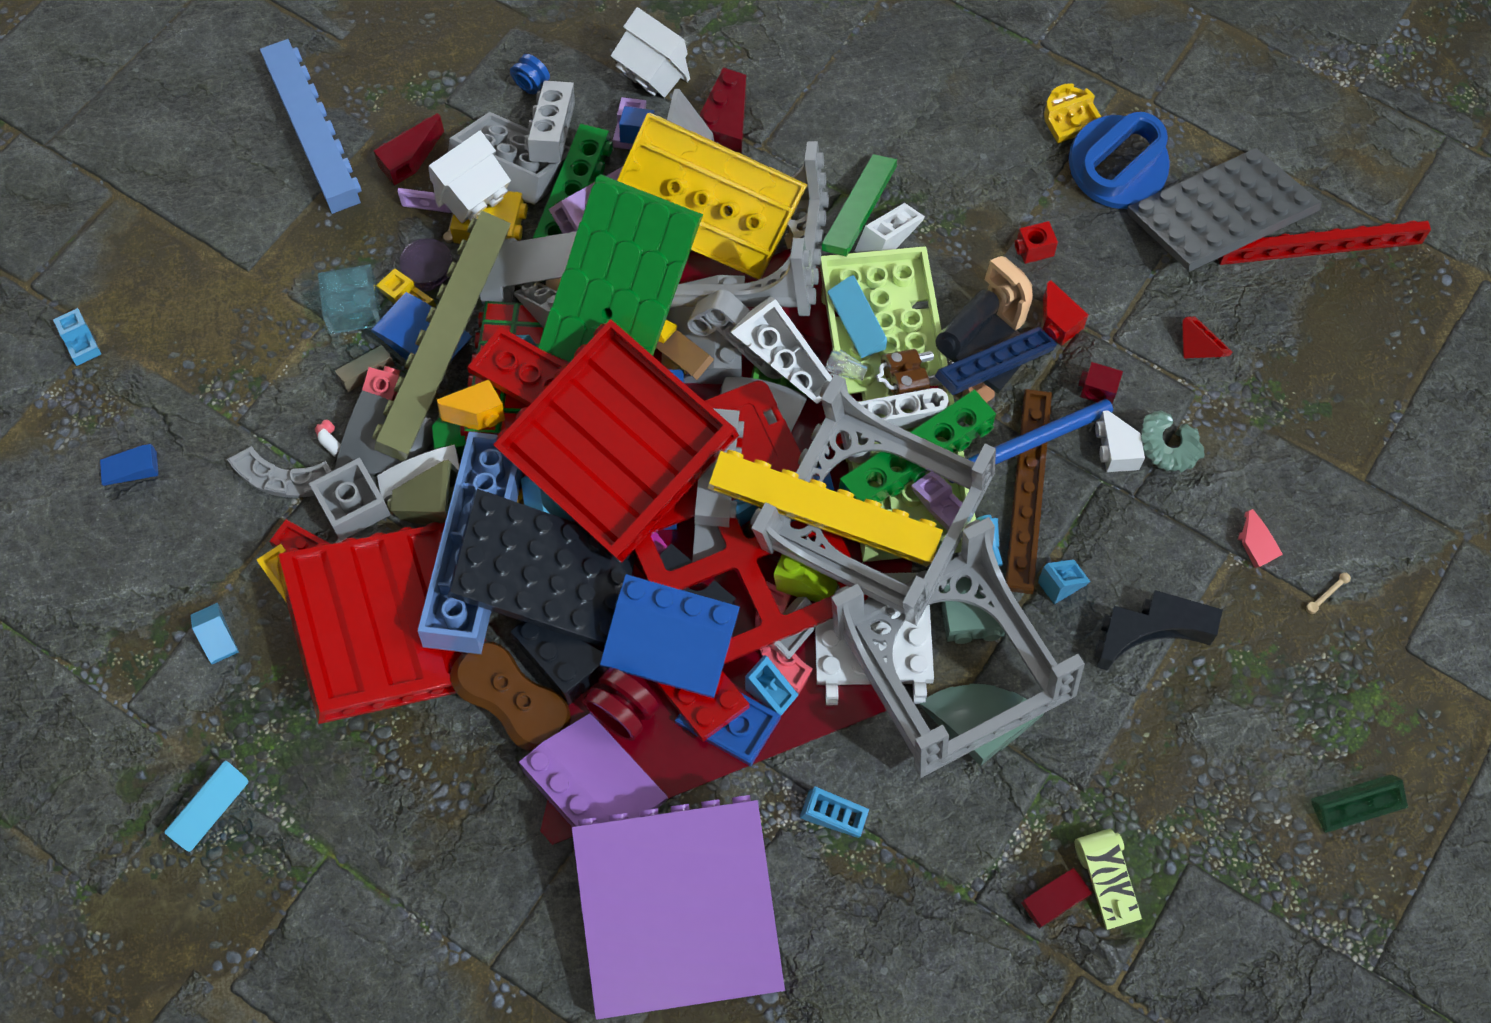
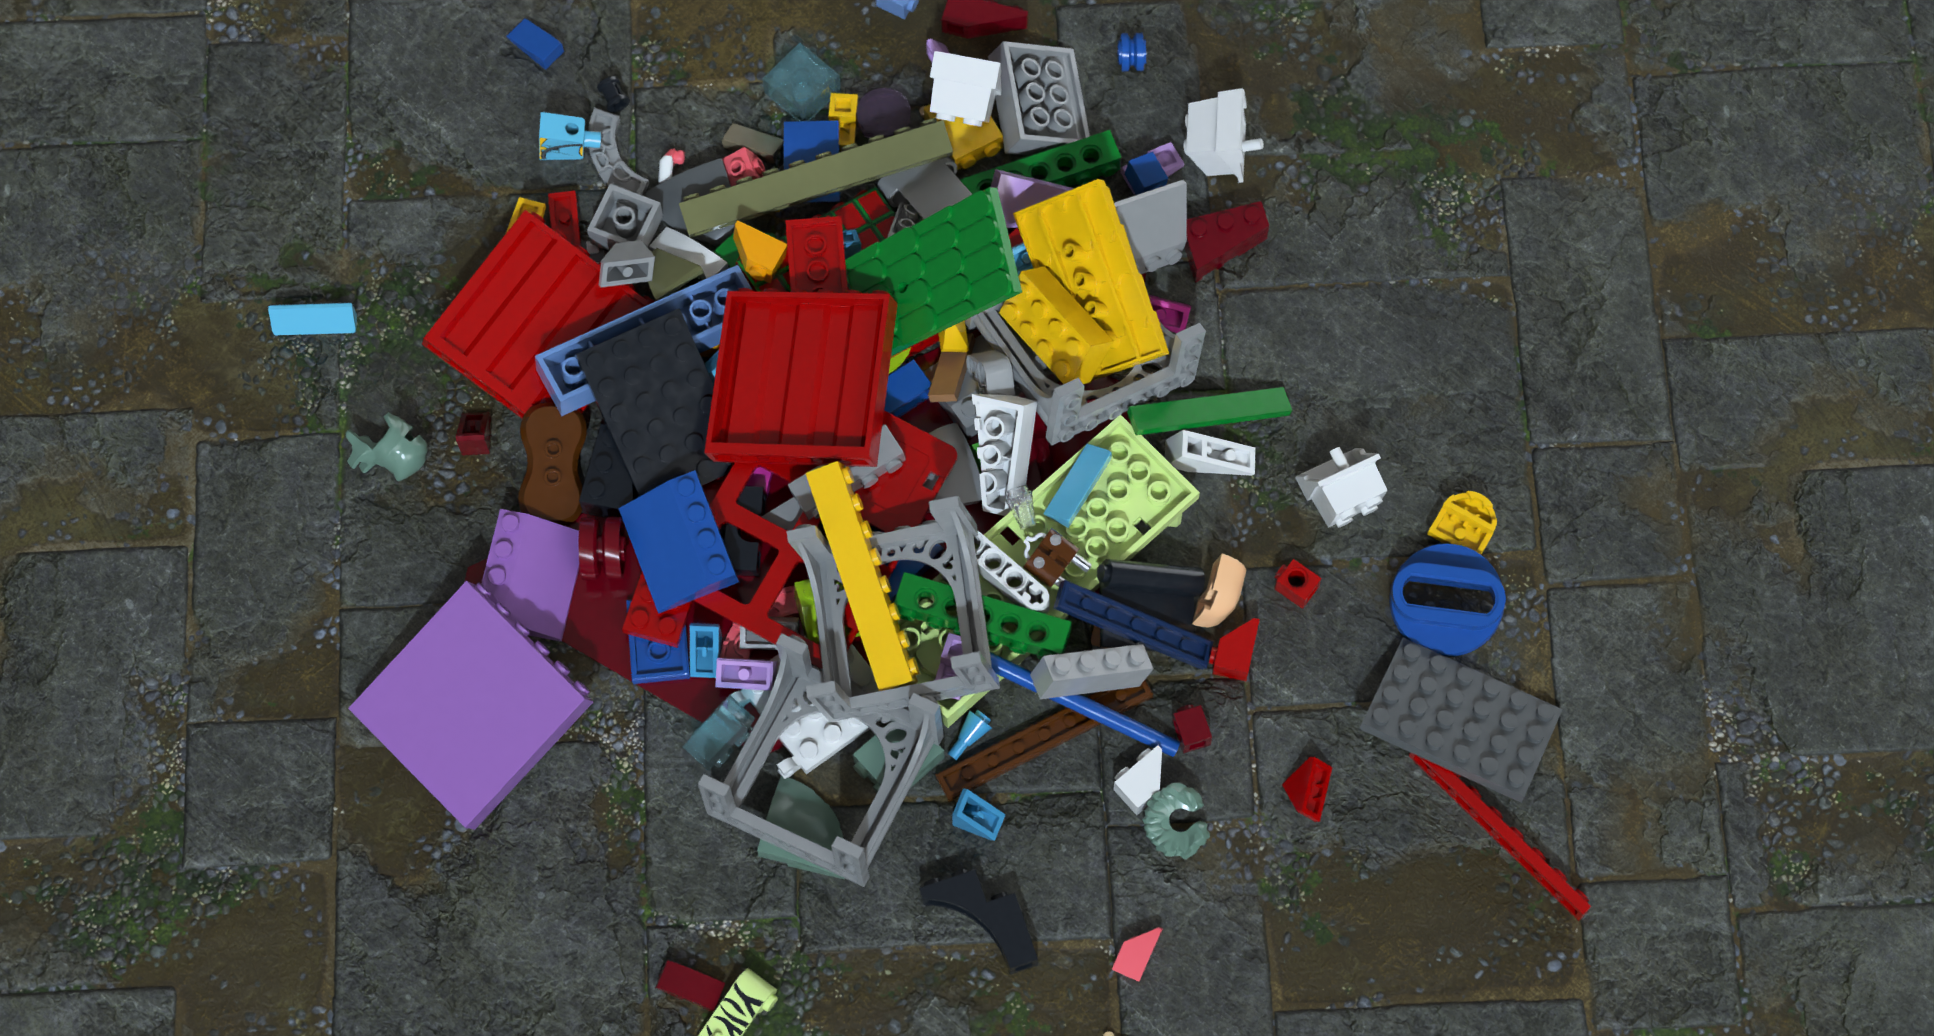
camera: 55 degrees right, 5 degrees up
(213, 633) = (447, 213): slope -> none
(229, 437) = (613, 94): none -> black bush
(233, 495) = (565, 137): none -> medium azure torso
(389, 817) = (396, 451): none -> sand green piece
(395, 511) = (626, 264): none -> light grey slope
(427, 742) = (474, 433): none -> dark red slope
(550, 122) = (1091, 105): light grey brick -> none
(731, 248) = (1056, 327): none -> yellow brick
(817, 667) = (745, 673): none -> lavender slope
(831, 822) = (632, 749): dark azure slope -> none
(859, 719) = (714, 738): none -> clear light blue brick
(986, 160) = (1344, 486): none -> white piece
(1016, 410) = (1091, 671): none -> light grey brick

